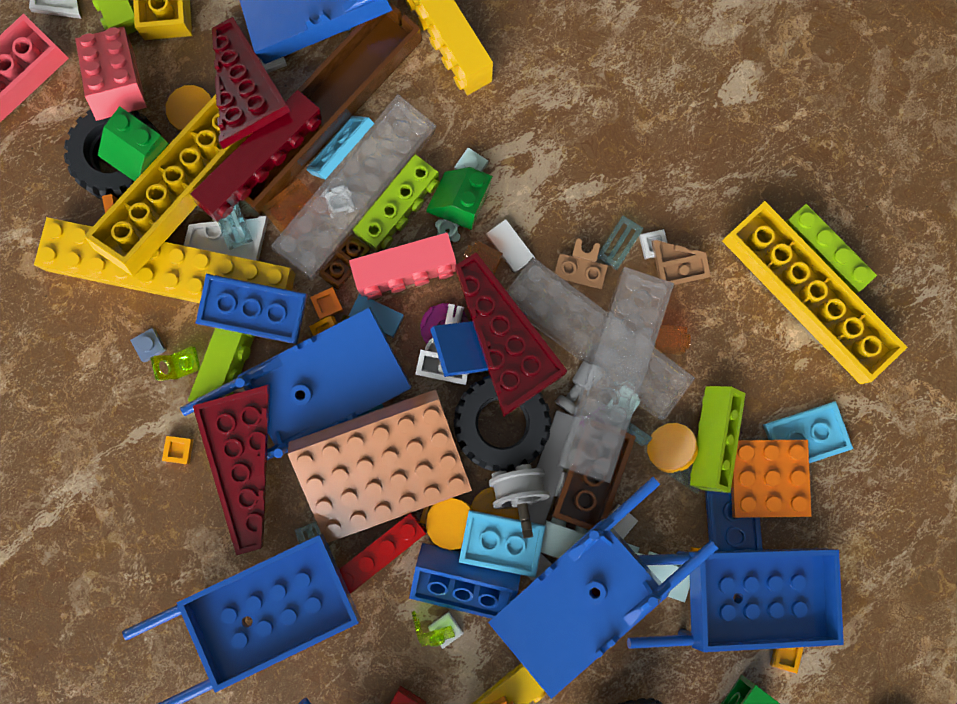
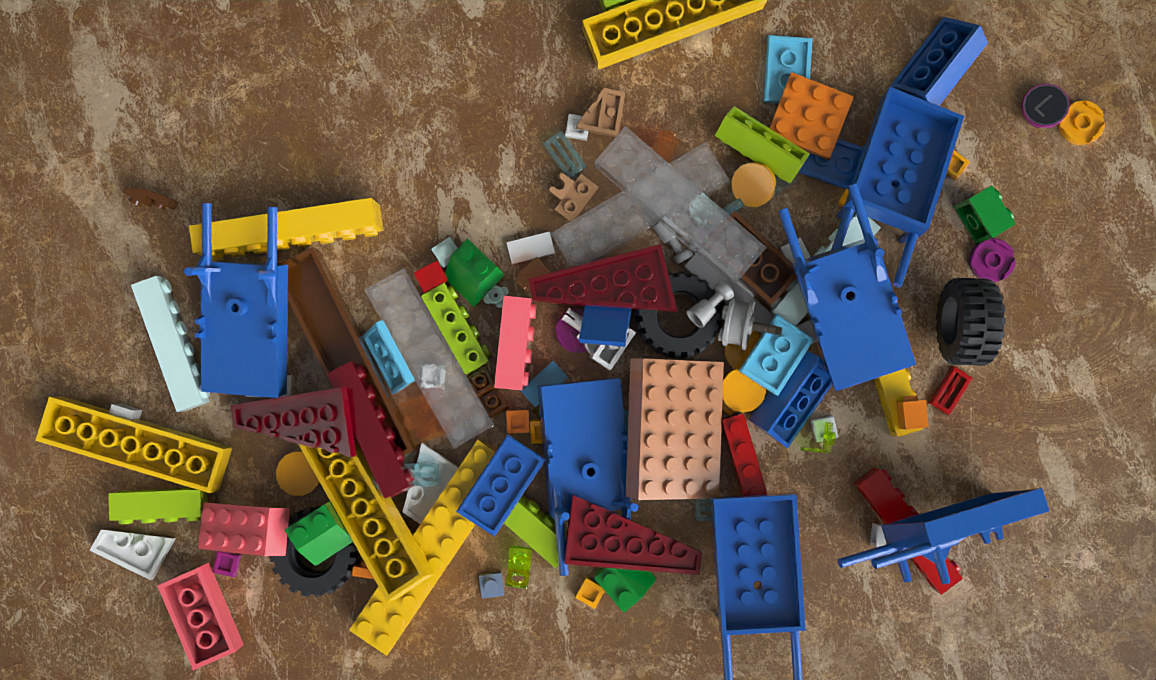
camera: 70 degrees left, 5 degrees up
(71, 76) = (227, 563): none -> magenta tile
(195, 481) = (624, 585): none -> green slope
(439, 156) = (431, 276): none -> red panel
(517, 445) = (704, 310): none -> light grey piece
(892, 597) = (941, 60): none -> blue slope

